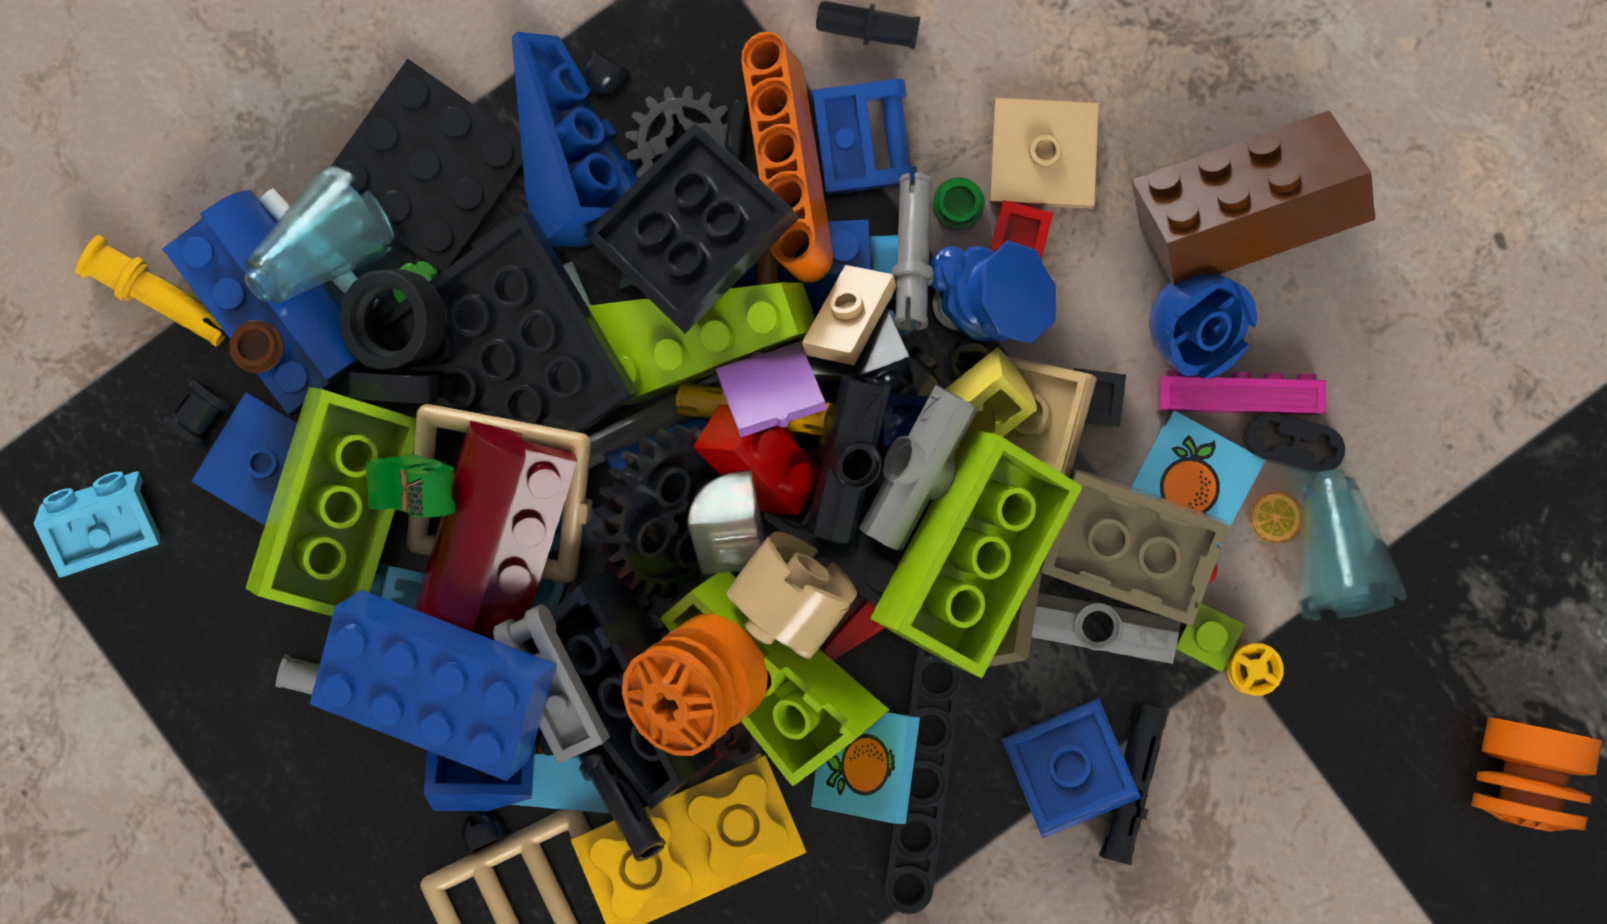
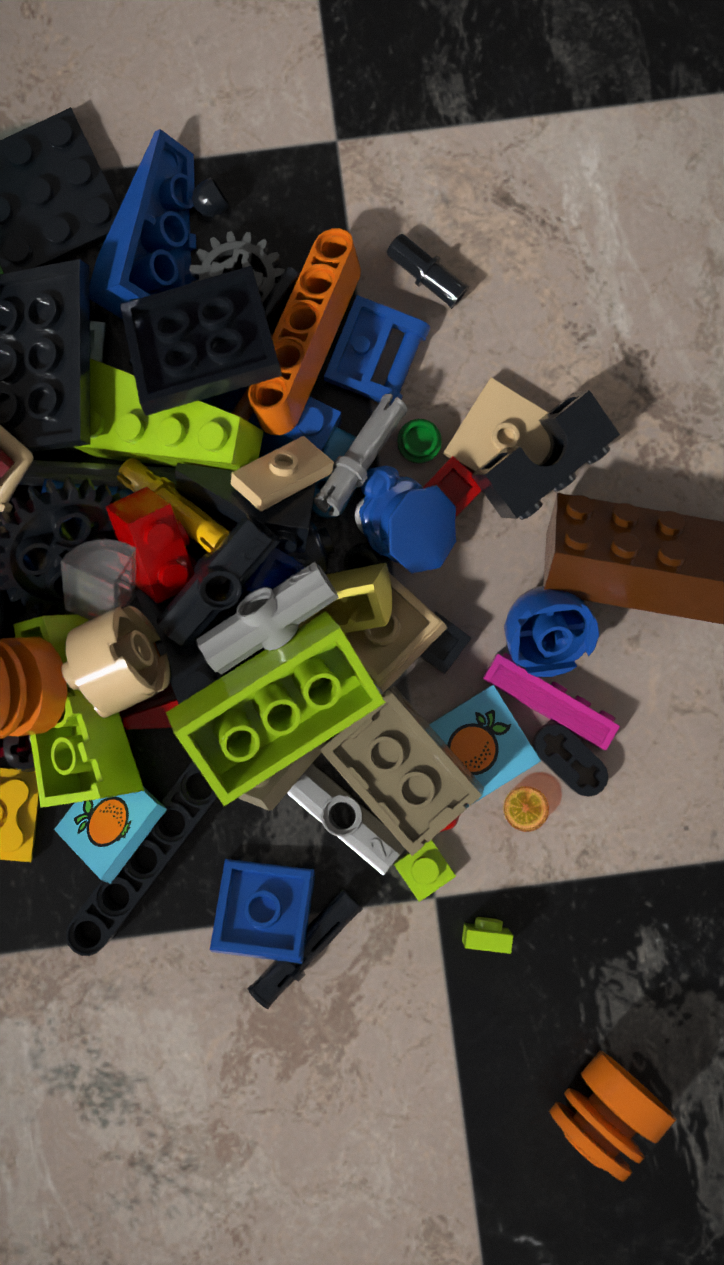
camera: 20 degrees right, 0 degrees up
(770, 389) = (185, 494): medium lavender piece -> none
(1119, 110) = (577, 435): none -> black arch
(1262, 673) = (447, 921): yellow wheel -> none
(1311, 666) = (487, 936): none -> lime plate
(1343, 552) = (560, 863): clear light blue cone -> none

